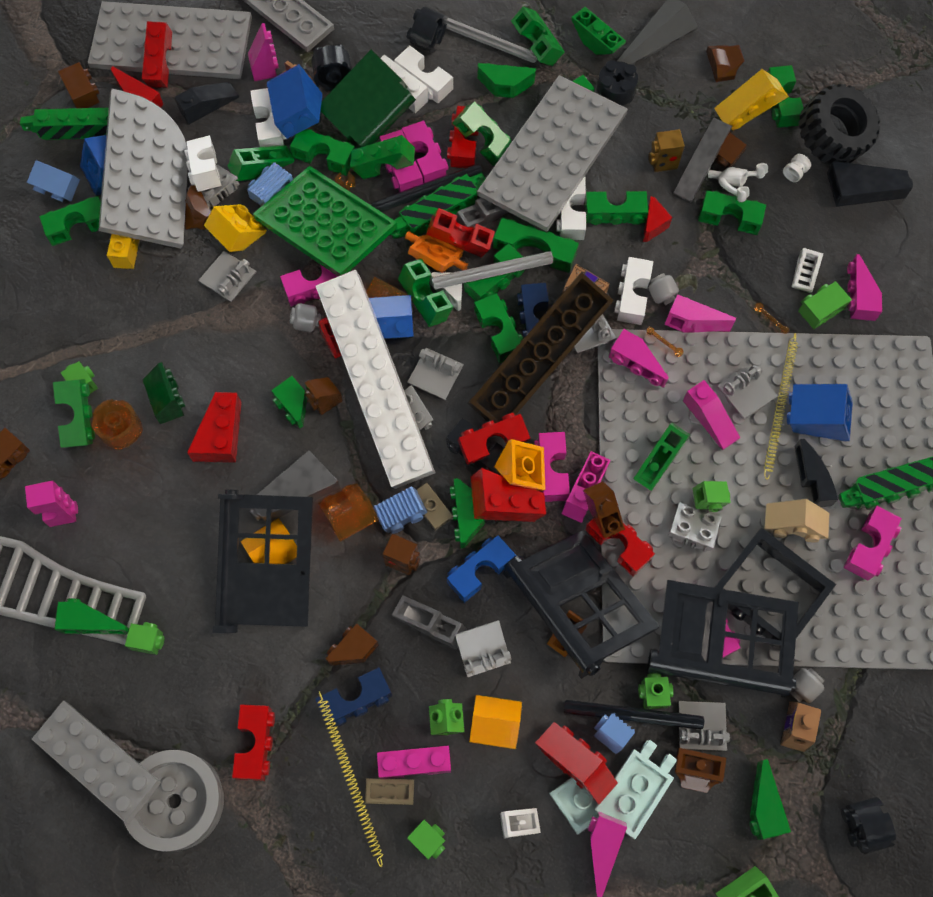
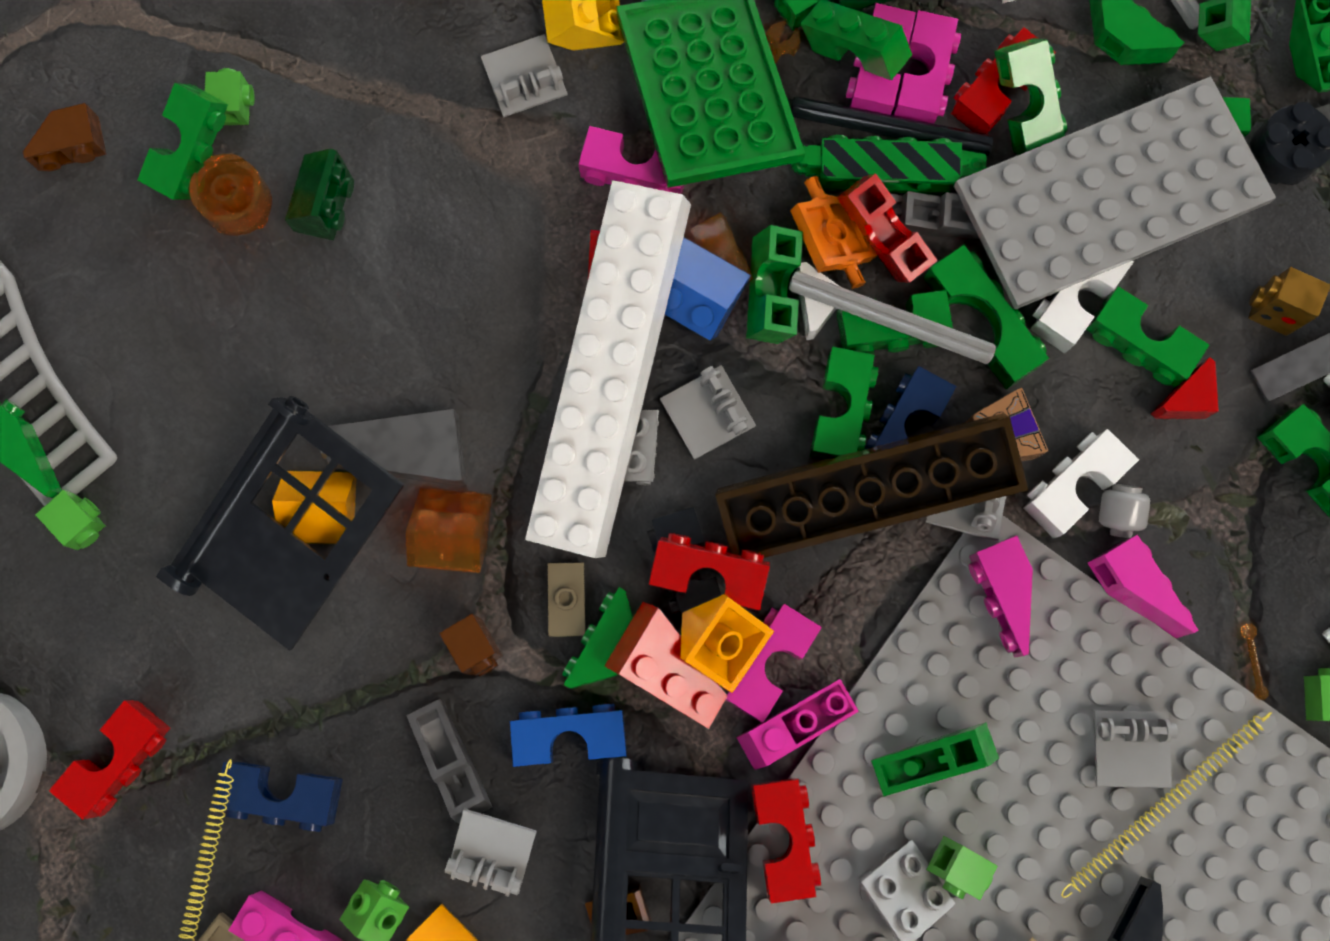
camera: 35 degrees right, 10 degrees up
(52, 502) = (66, 253): dark pink arch -> none
(218, 431) = (358, 295): red wedge -> none
(292, 399) = (485, 319): green slope -> none
(304, 317) = (583, 208): light grey head -> none
(322, 394) = (528, 339): reddish brown slope -> none
(354, 647) = (325, 726): reddish brown slope -> none
(400, 510) = (517, 579): medium blue brick -> none
(604, 509) = (789, 785): reddish brown slope -> none
(678, 351) = (1075, 619): clear orange hinge -> none
(711, 414) = (1052, 749): dark pink slope -> none
(821, 410) = (1218, 857): blue slope -> none

